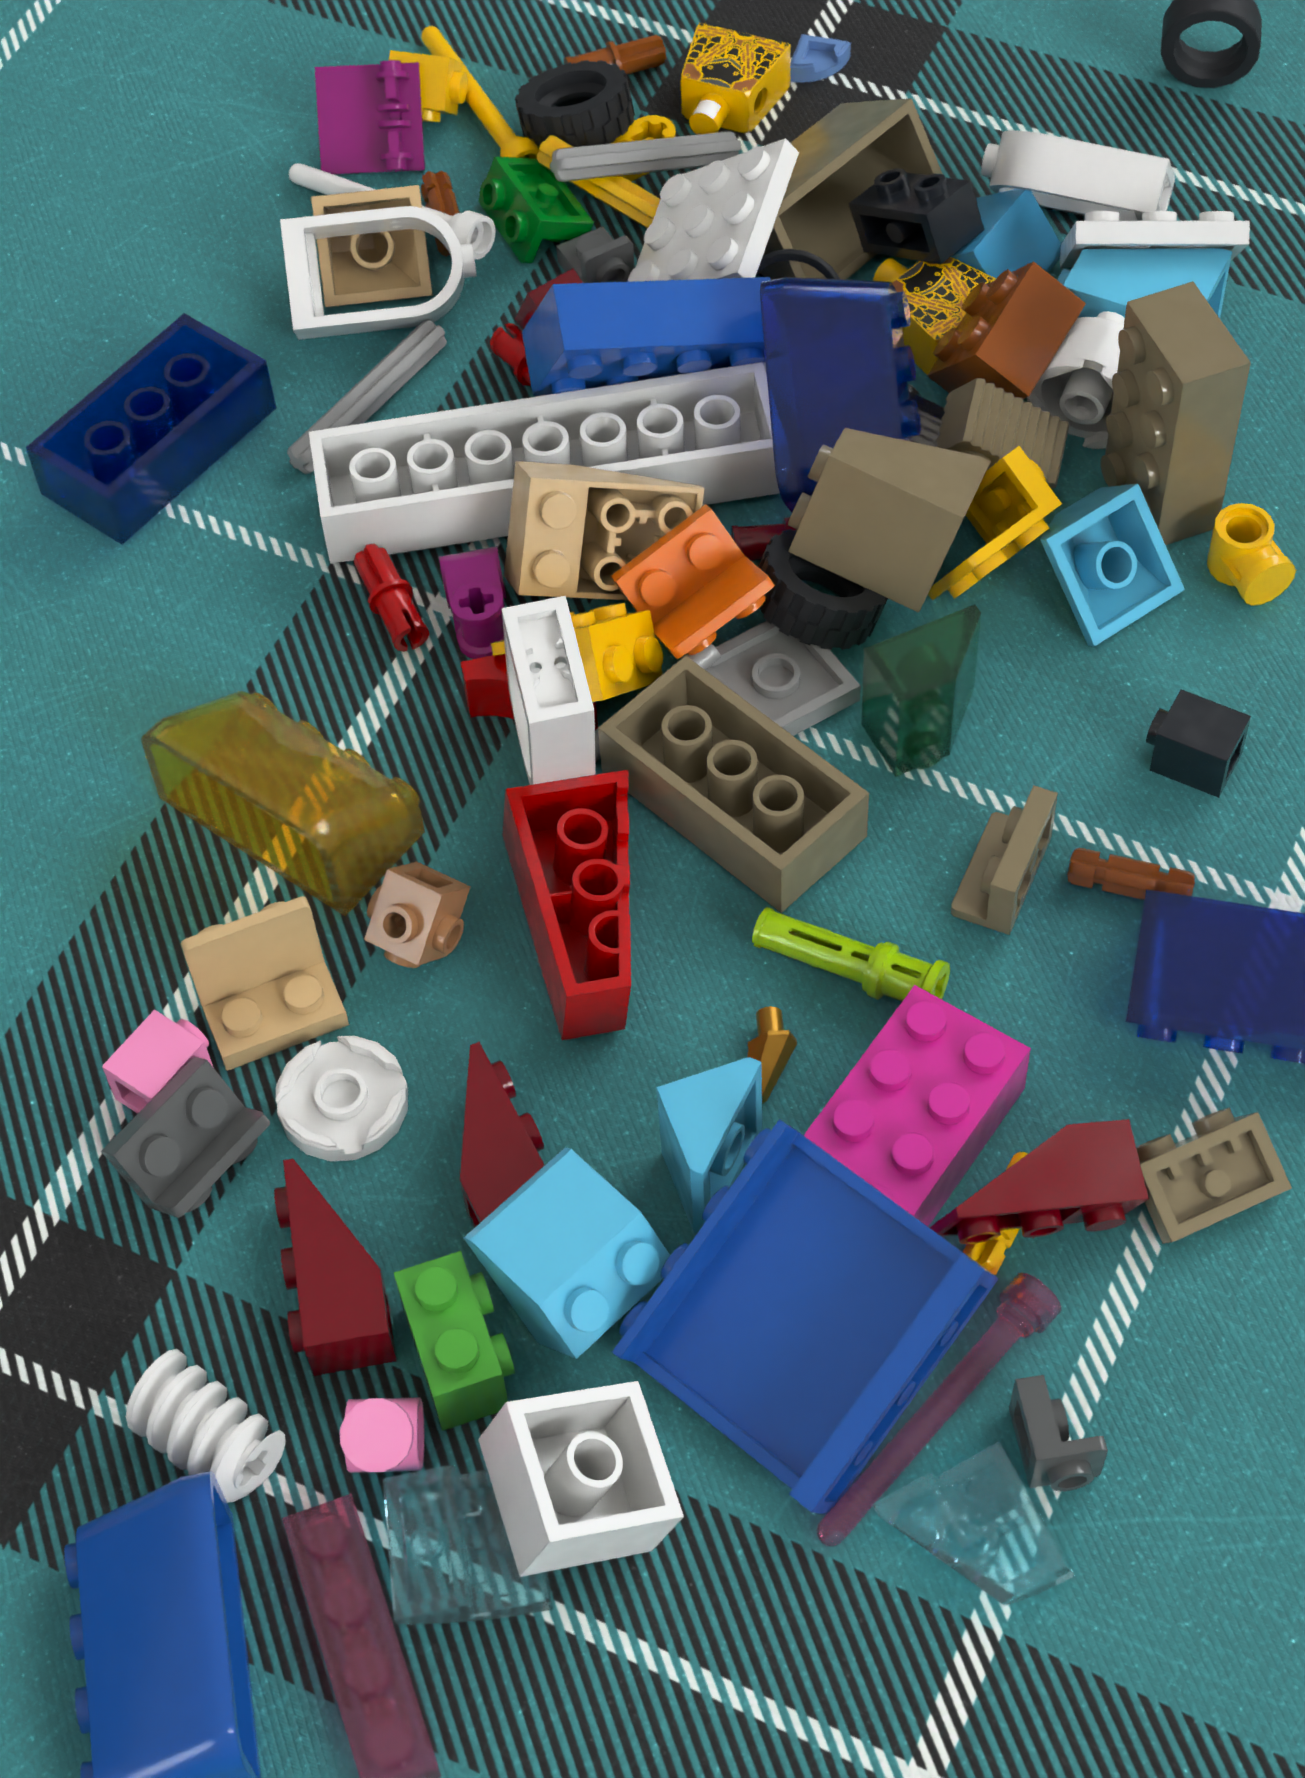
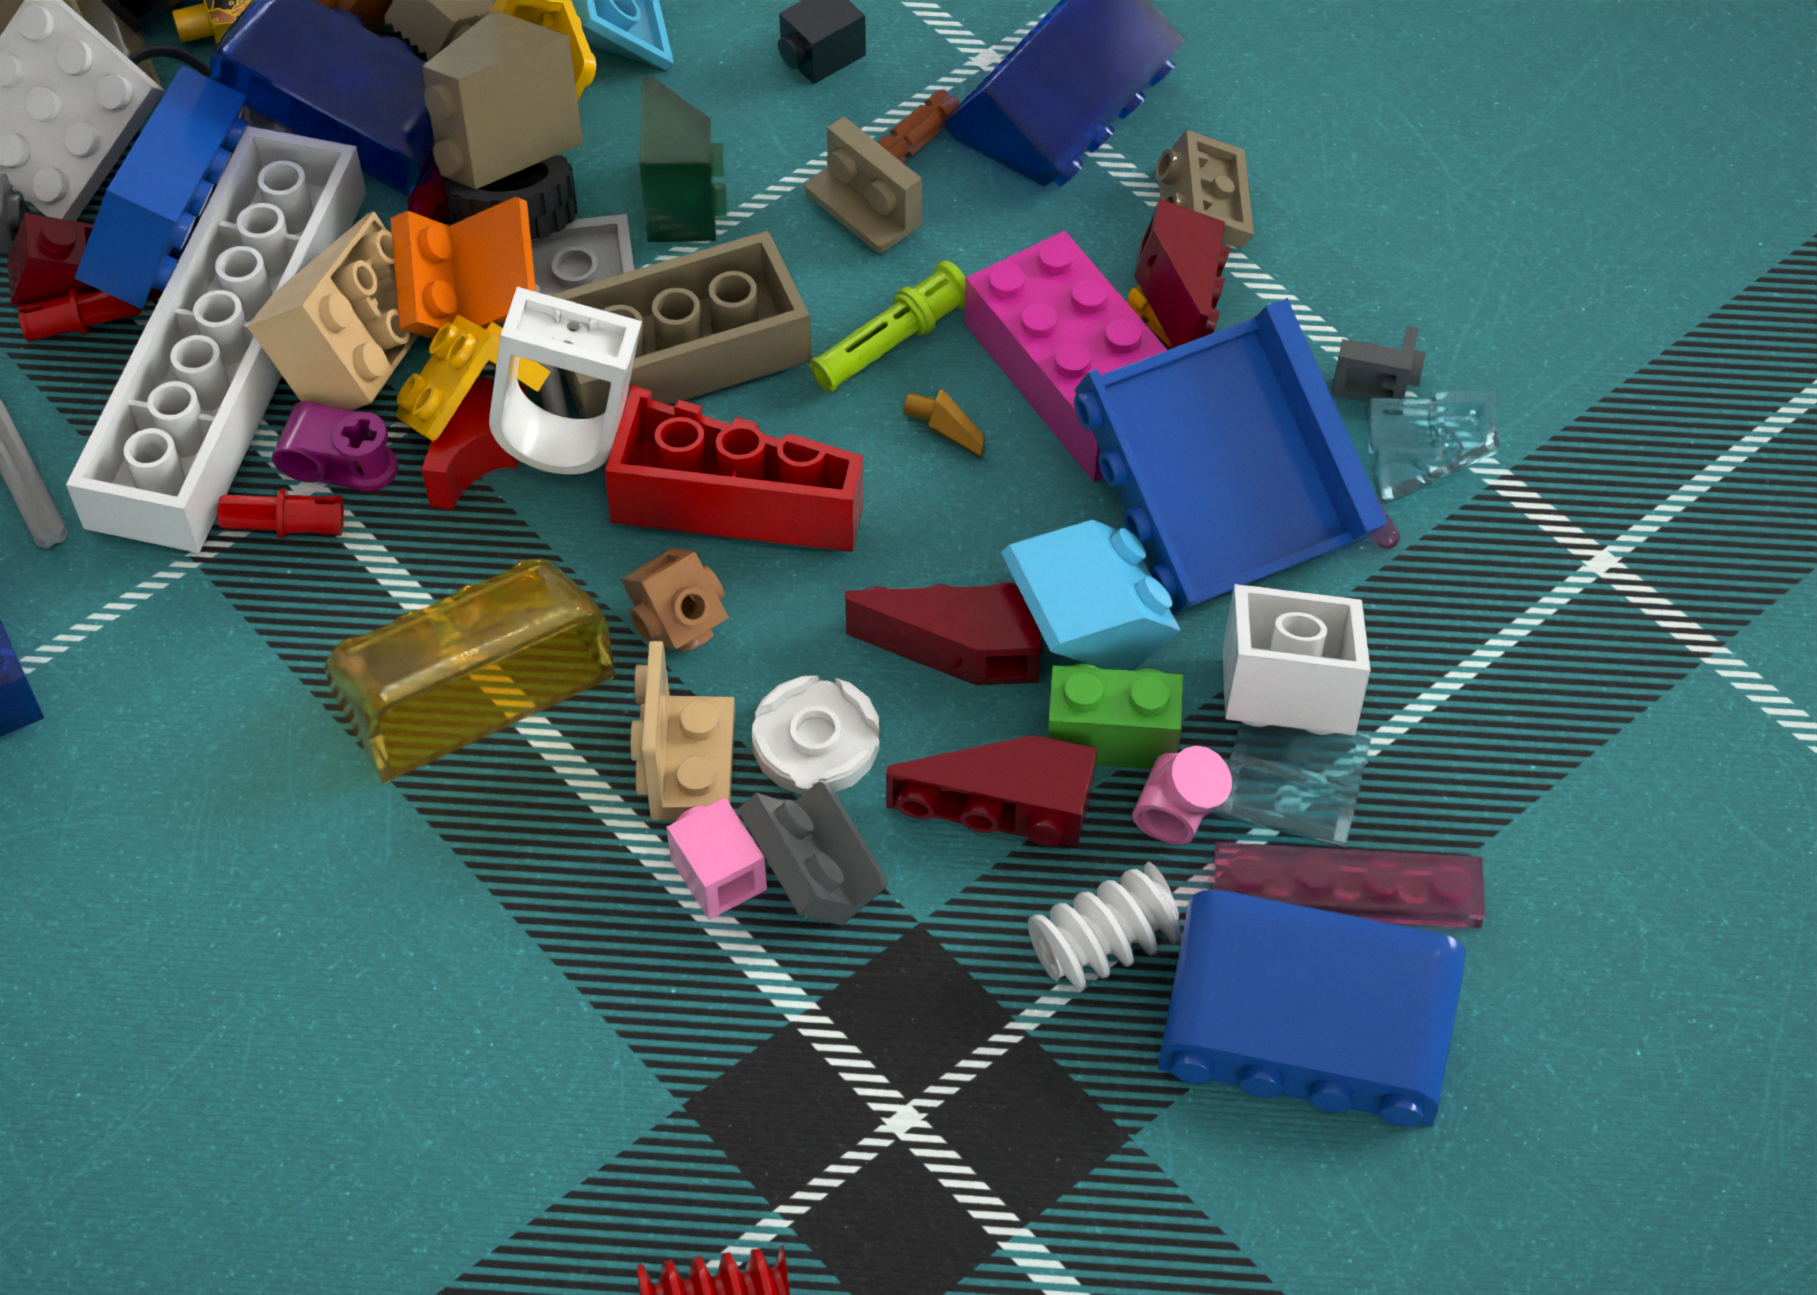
camera: 70 degrees left, 0 degrees up
(707, 1129) = (1039, 469): medium azure slope -> none

